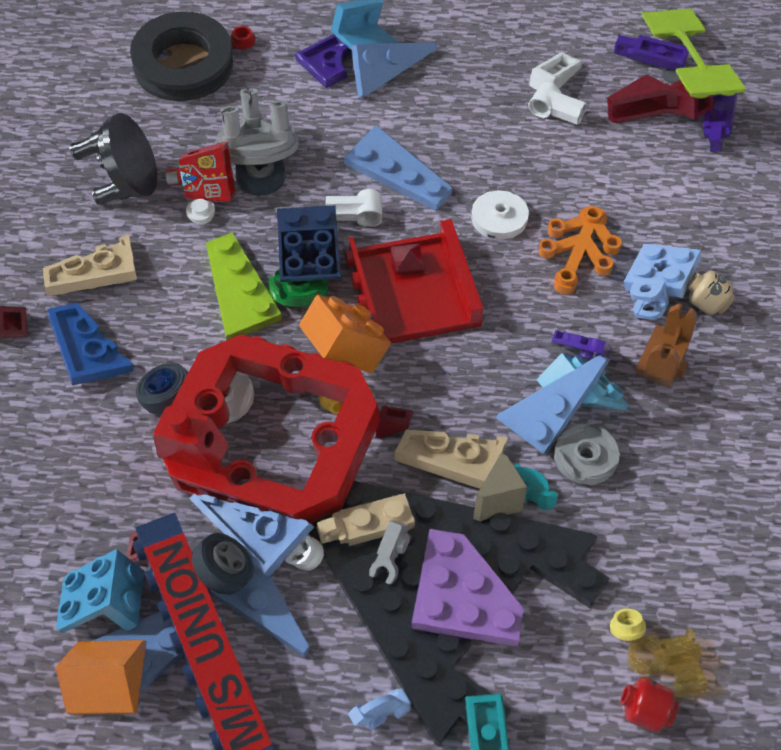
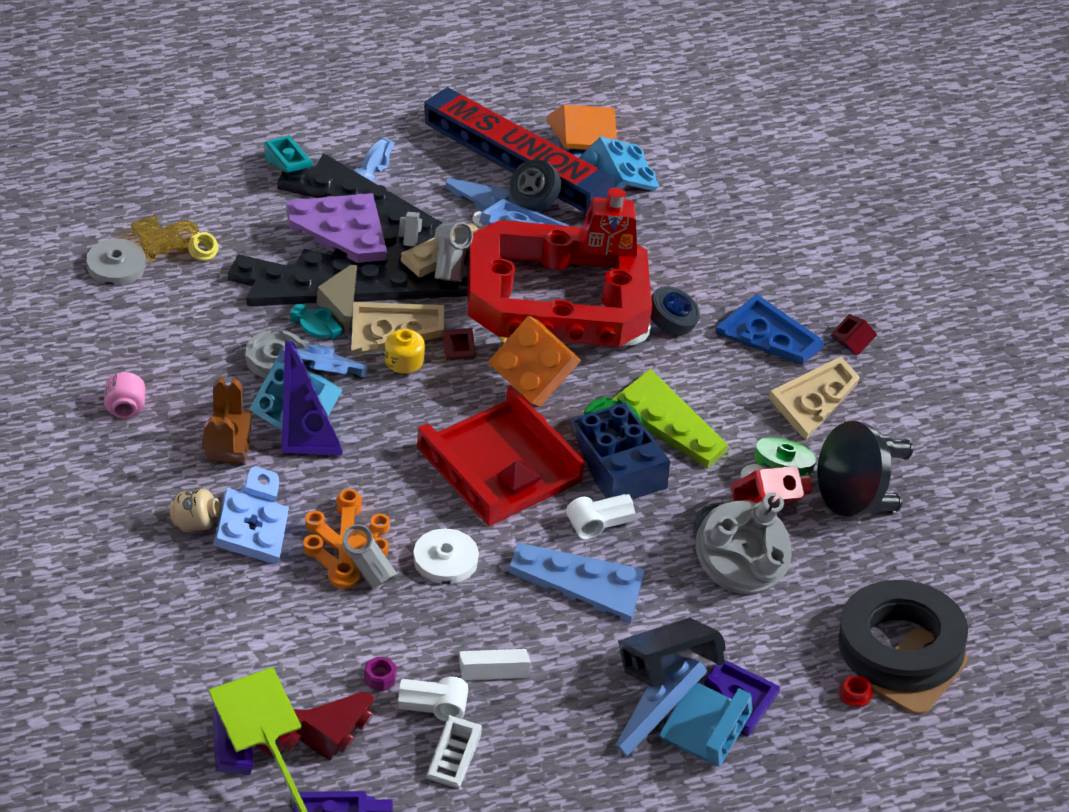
camera: 155 degrees right, 10 degrees down
(176, 219) = (784, 453): none -> plate
(363, 489) = (452, 252): none -> light grey piece
(365, 72) = (643, 651): none -> black panel
(458, 408) = (404, 351): none -> yellow head
(498, 121) = (494, 664): none -> white slope
(575, 209) = (370, 559): none -> light grey piece
(591, 134) = (380, 673): none -> magenta tile
(649, 704) = (173, 201): red head -> none
(730, 655) = (116, 261): none -> light grey plate
(754, 443) = (124, 395): none -> bright pink head

